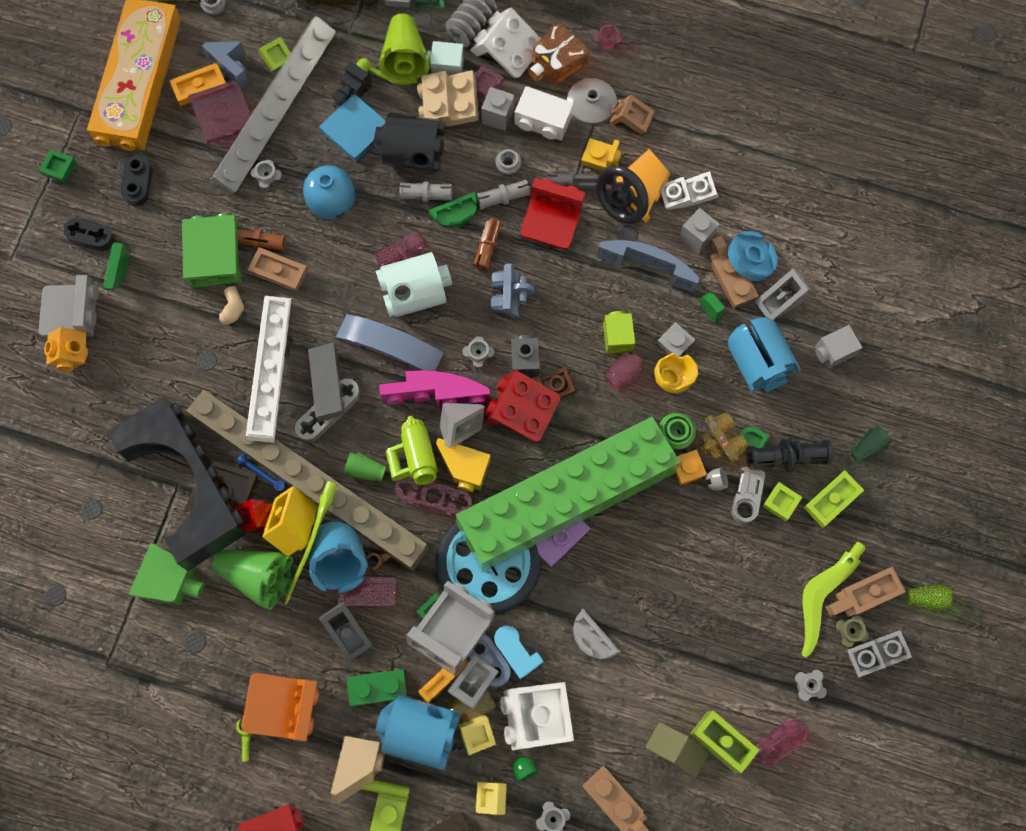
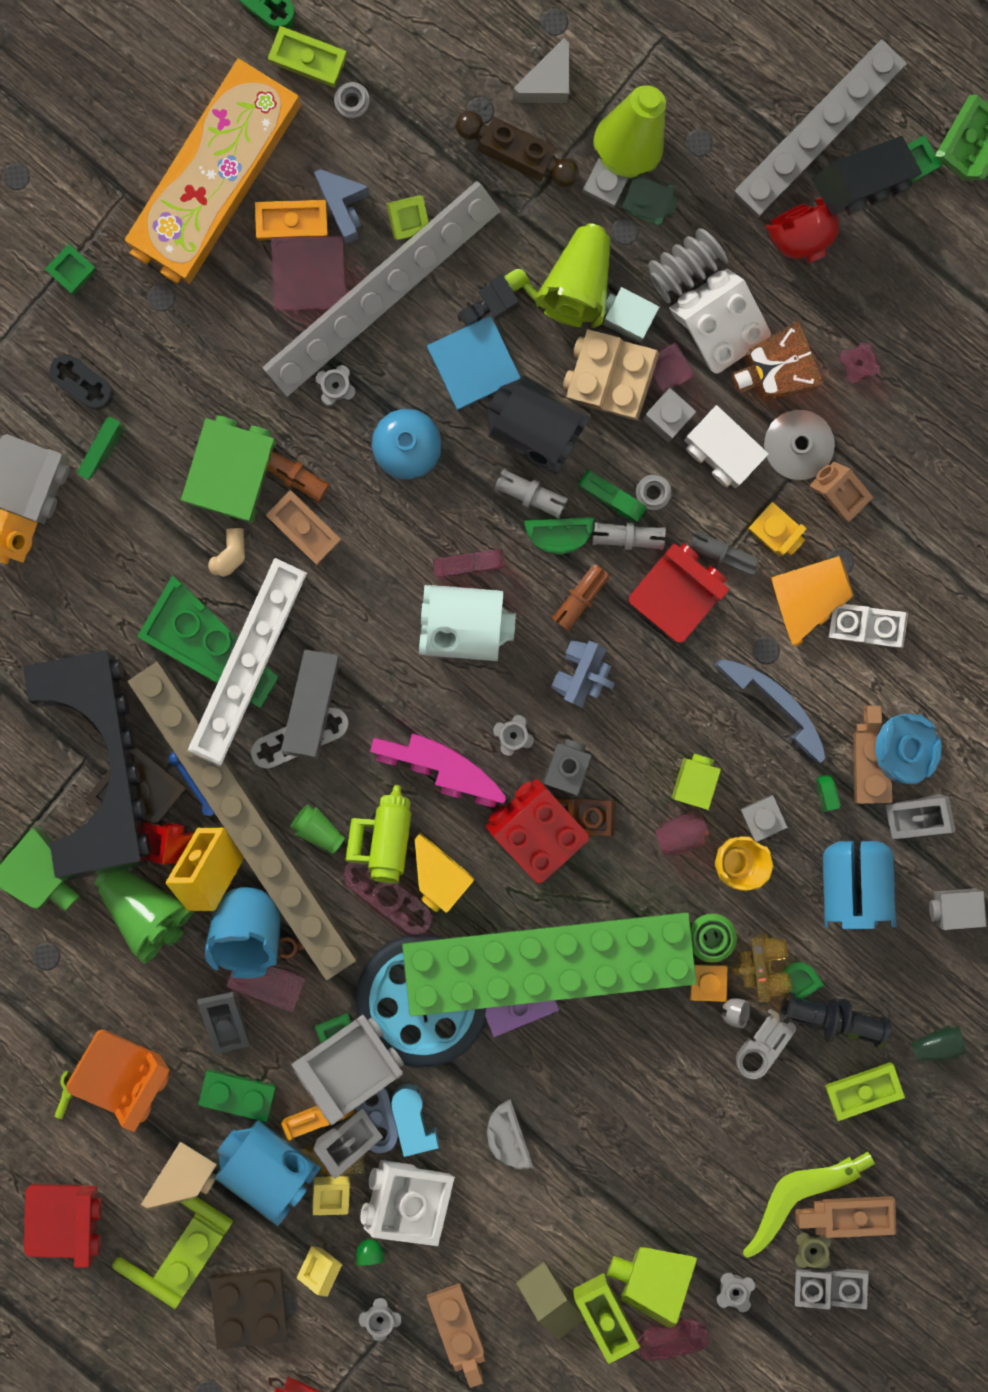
camera: 20 degrees right, 15 degrees up
(136, 178) = (165, 326): black plate -> none
(228, 370) = (196, 637): none -> green wing
(325, 502) = (253, 869): lime piece -> none
(389, 342) = (407, 681): sand blue slope -> none
(460, 422) = (452, 823): light grey slope -> none
(479, 173) = (612, 496): none -> green piece
(622, 194) = (776, 607): black plate -> none
(698, 231) = (855, 689): light grey brick -> none
(748, 699) = (654, 1282): none -> lime torso
(782, 501) = (801, 1070): lime plate -> none
(933, 597) = (923, 1250): clear neon green cone -> none

